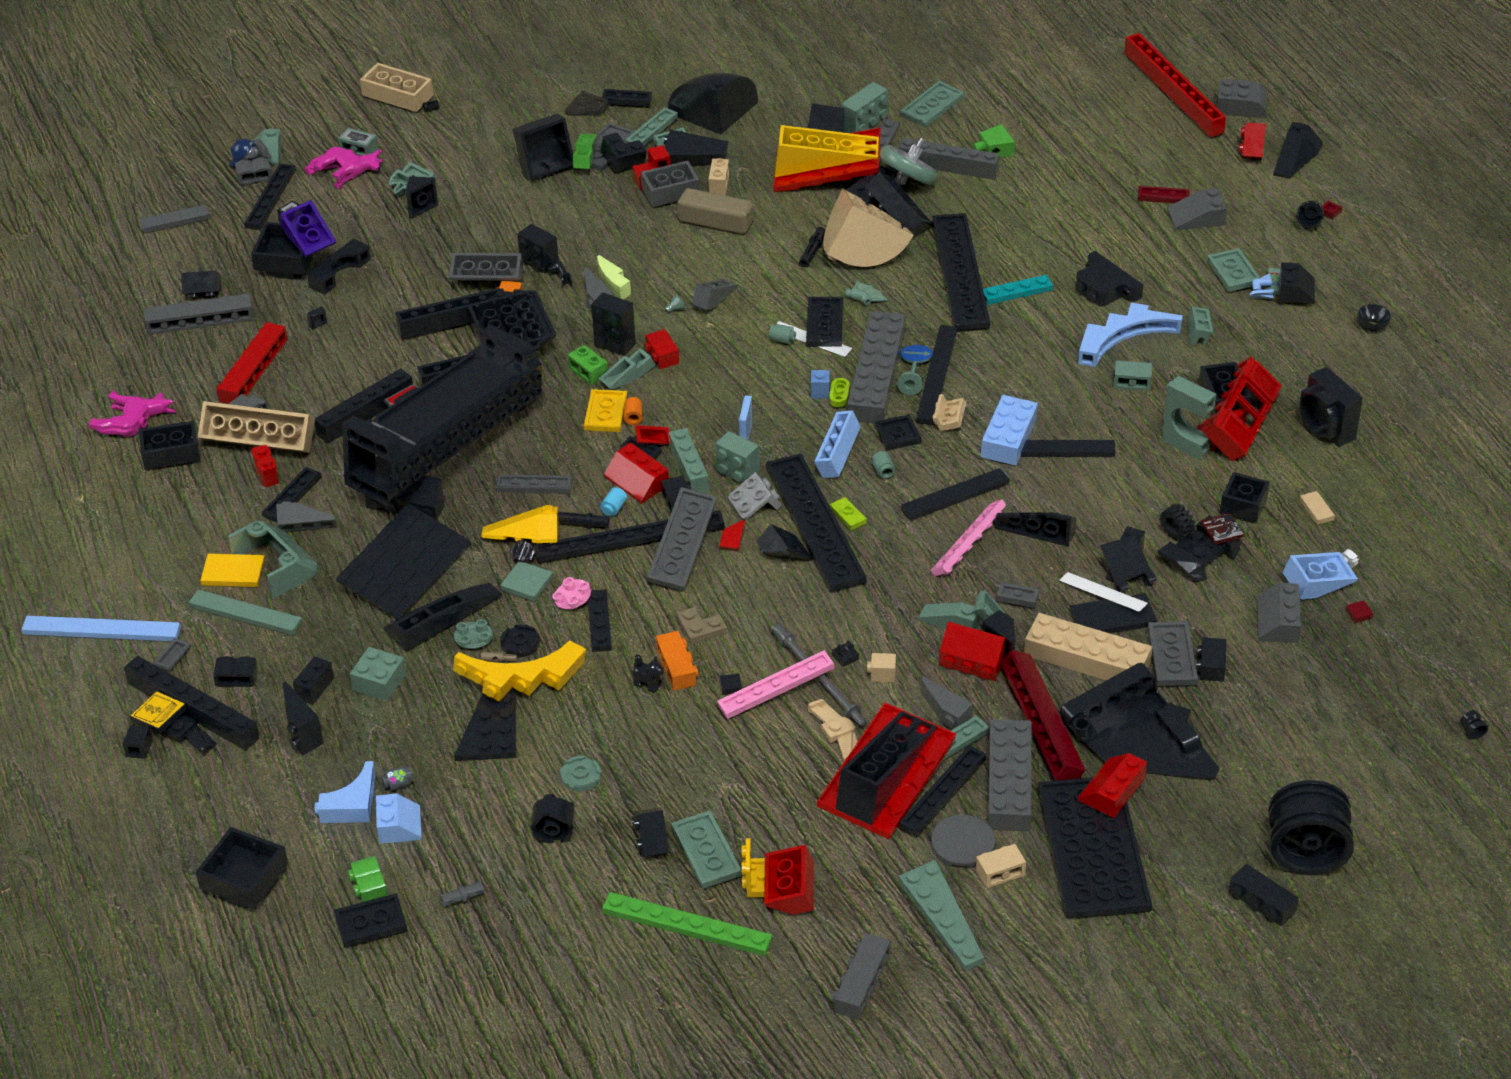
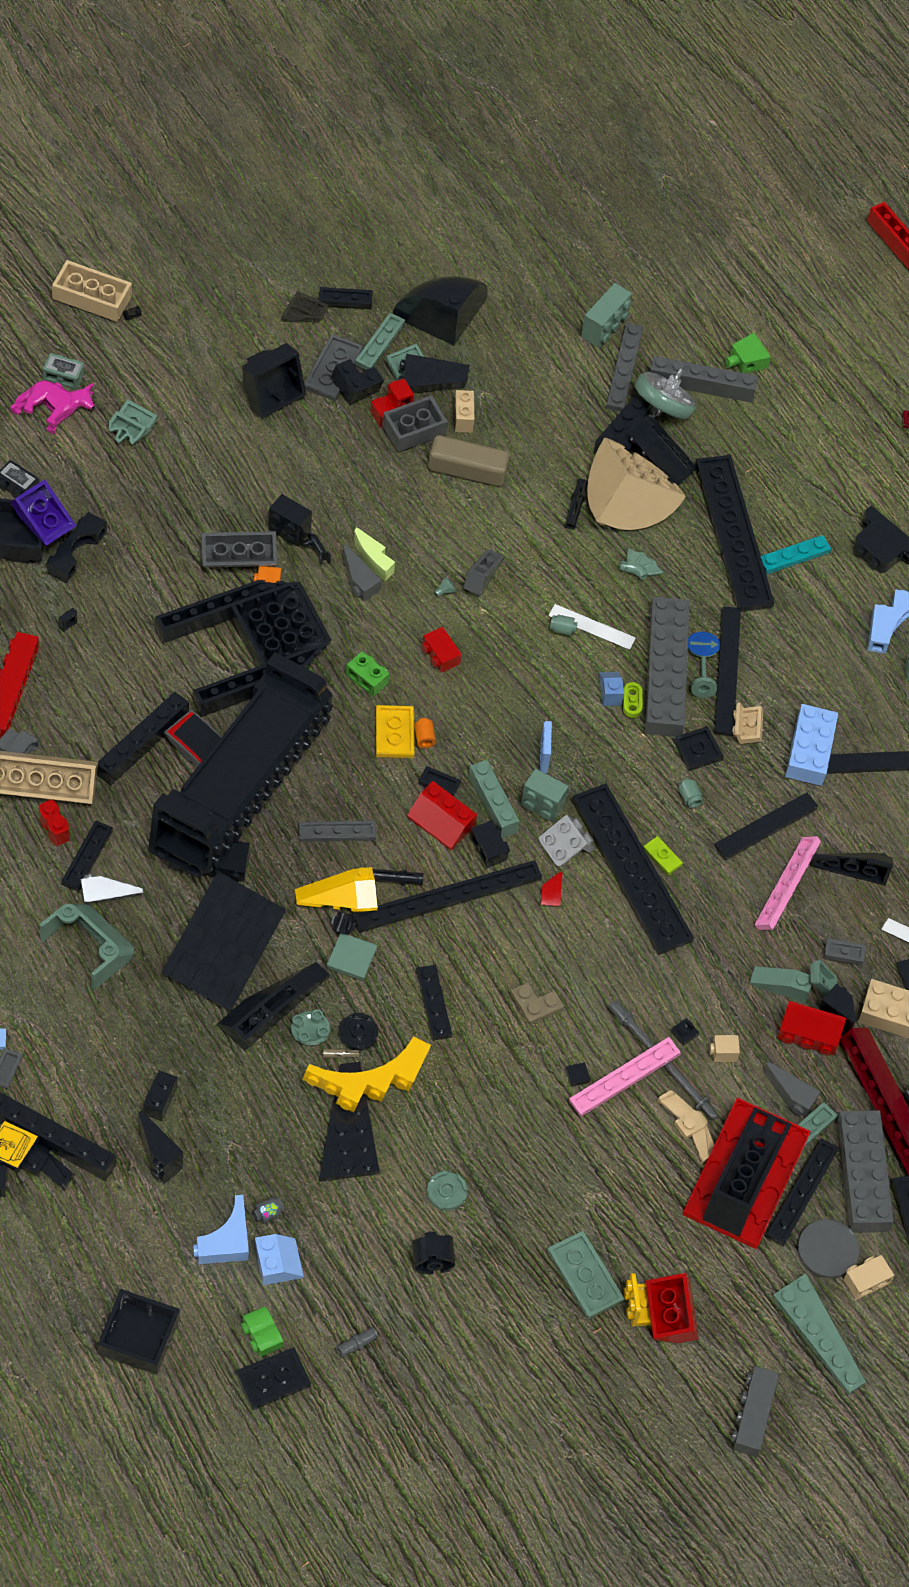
camera: 15 degrees left, 15 degrees up
(232, 570) = (46, 957): yellow tile -> none
(235, 671) = (77, 1087): black brick -> none
(245, 612) = (70, 1010): sand green tile -> none
(378, 673) = (224, 1083): sand green brick -> none
(420, 195) = (150, 448): black slope -> none
(572, 593) = (402, 972): bright pink dish -> none
(584, 151) = (315, 379): bright green slope -> none
(613, 324) = (390, 626): black brick -> none
(613, 501) = (424, 853): medium azure brick -> none
(627, 369) = (409, 679): sand green slope -> none
(647, 673) = (496, 1070): black animal -> none
(652, 435) = (451, 766): red slope -> none
(652, 831) = (533, 1259): black brick -> none
(676, 660) = (521, 1050): orange brick -> none
(682, 539) = (504, 901): dark grey plate -> none
(687, 924) = (579, 1361): bright green plate -> none
(782, 544) = (605, 900): black slope -> none
(822, 156) = (576, 386): yellow piece -> none
(825, 321) = (603, 604): black tile -> none
(826, 118) = (568, 337): black slope -> none
(837, 444) = (642, 771): light blue brick -> none
(932, 104) = (673, 298): sand green tile -> none

